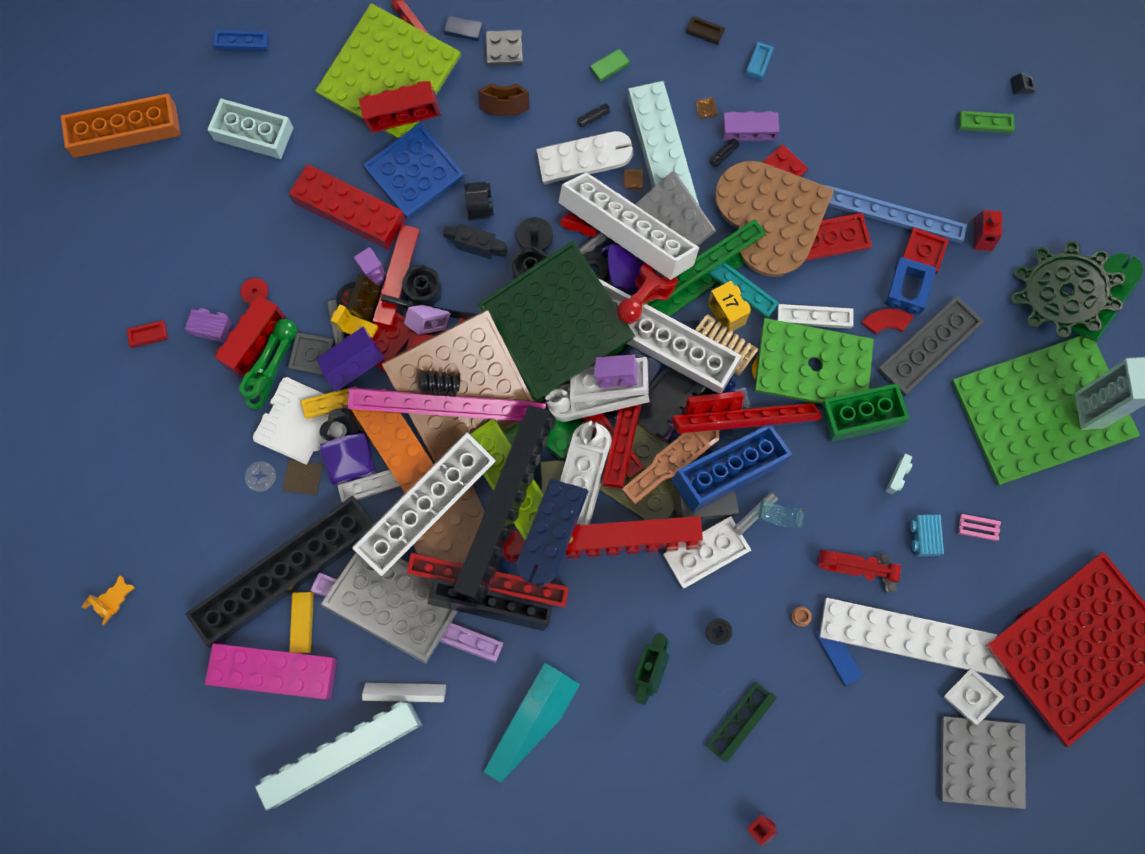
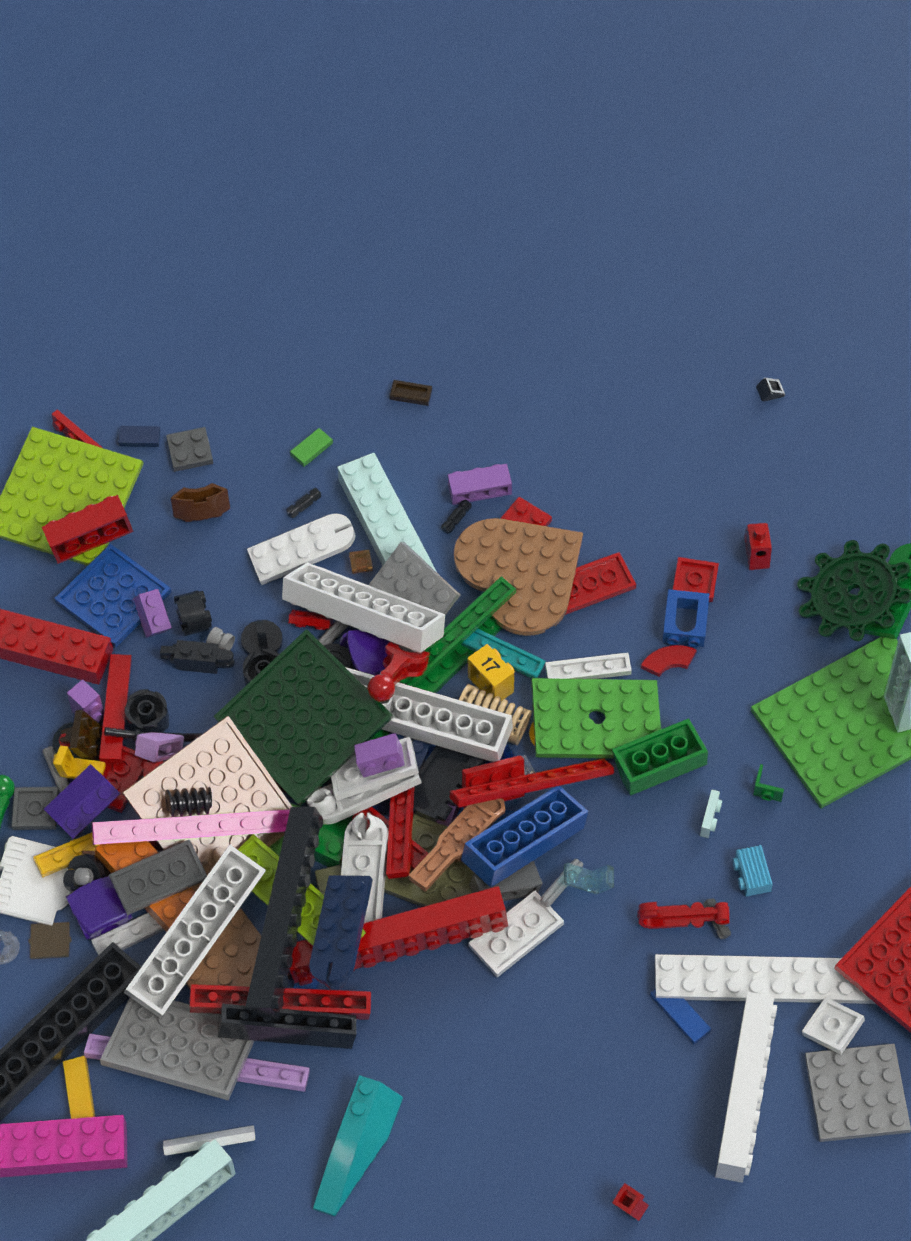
camera: 10 degrees left, 15 degrees down
(401, 445) = (158, 877): none -> dark grey tile
(443, 194) = (152, 613): none -> medium lavender brick
(496, 227) = (218, 637): none -> light grey wheel
(651, 668) = (477, 1061): dark green hinge -> none
(706, 108) = (428, 473): clear orange tile -> none
(724, 626) = (546, 1003): black piece -> none
(747, 727) = (593, 1102): dark green fence -> none
(759, 60) = (477, 414): dark azure tile -> none
(801, 616) = (632, 980): nougat plate -> none
(886, 742) = (746, 1087): none -> white brick
(897, 214) = (657, 547): medium blue plate -> none
(930, 345) = (720, 676): dark grey plate -> none
(952, 463) = (765, 791): none -> green bracket
(986, 122) = (738, 435): bright green tile -> none
(995, 530) = (808, 849): bright pink tile -> none

